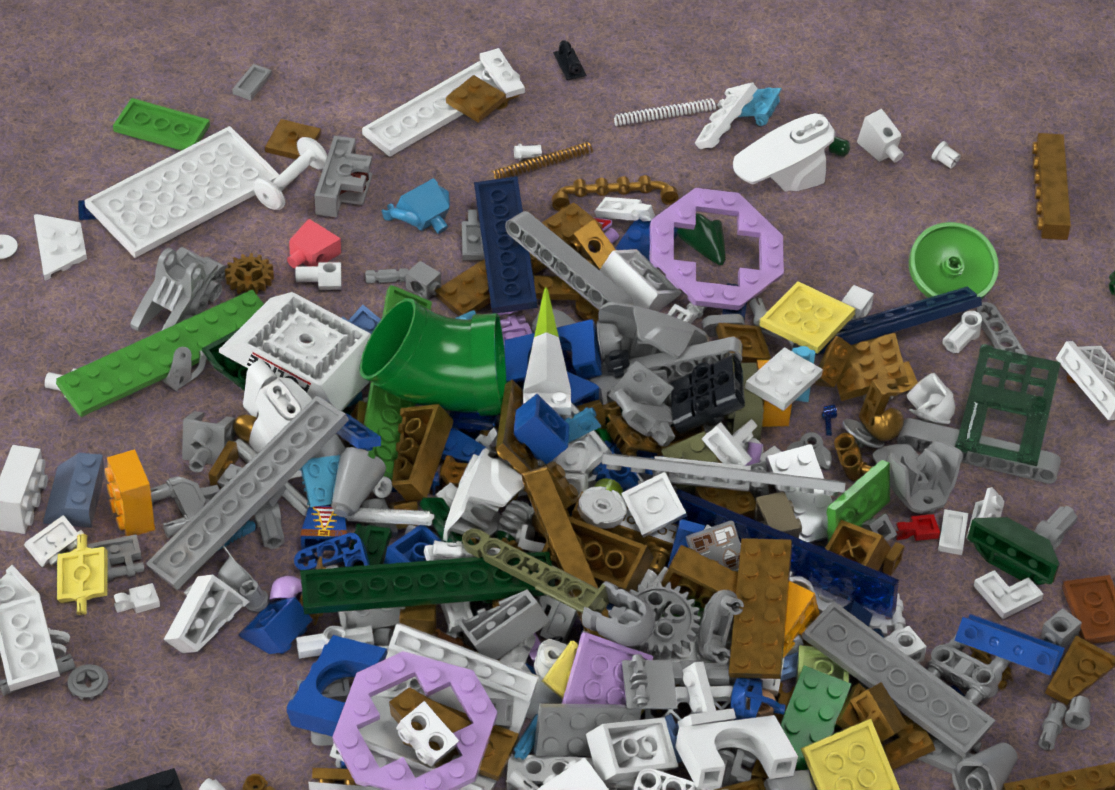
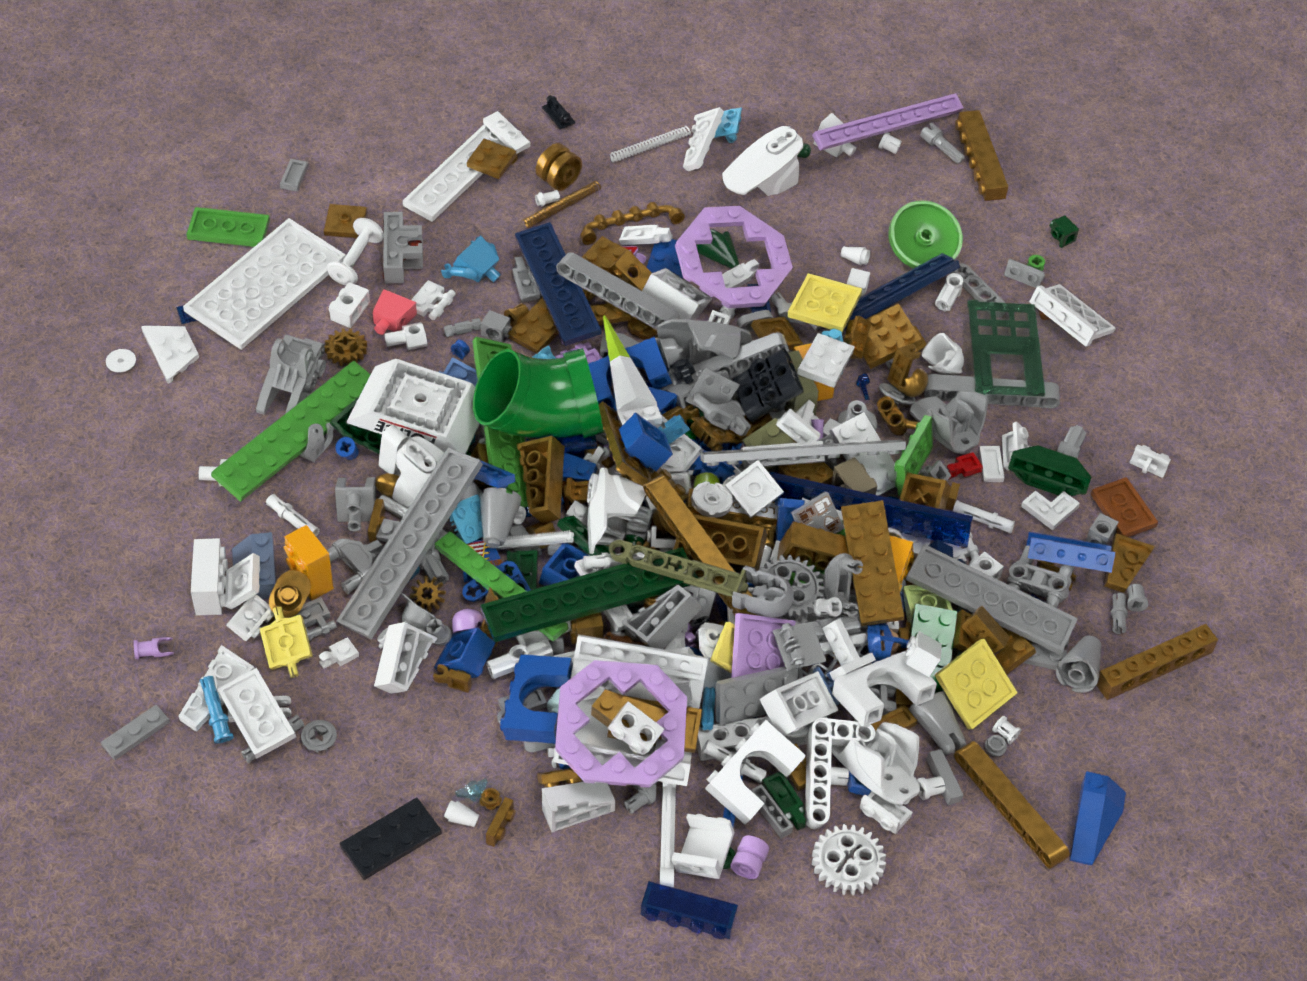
camera: 15 degrees left, 5 degrees up
(53, 500) = (242, 581): none -> white plate
(100, 521) = (290, 592): none -> pearl gold piece
(128, 437) = (285, 511): none -> white pin
(214, 381) = (341, 448): none -> blue bush
(238, 771) = (472, 790): none -> clear light blue piece
(257, 650) = (455, 679): none -> pearl gold plate
(263, 553) = (435, 594): none -> pearl gold gear
(267, 230) = (349, 304): none -> white brick
(324, 544) = (487, 574): none -> bright green plate
(358, 236) = (428, 296): none -> white plate
(376, 298) = (460, 348): none -> blue bush
(450, 270) = (516, 313): none -> pearl gold bush
(548, 119) = (558, 166): none -> pearl gold wheel
(700, 648) = (827, 607): none -> white bush
(721, 272) = (740, 274): none -> white hinge
(792, 720) = (923, 653): none -> white brick
(868, 273) = (858, 255): none -> white cone
(932, 593) = (985, 517): none -> white pin
(947, 129) = (887, 121): none -> lavender plate
(1003, 158) = (935, 137): none -> light grey piece
(1060, 326) = (1024, 273): none -> light grey hinge
(1077, 323) = (1036, 259): none -> bright green bush

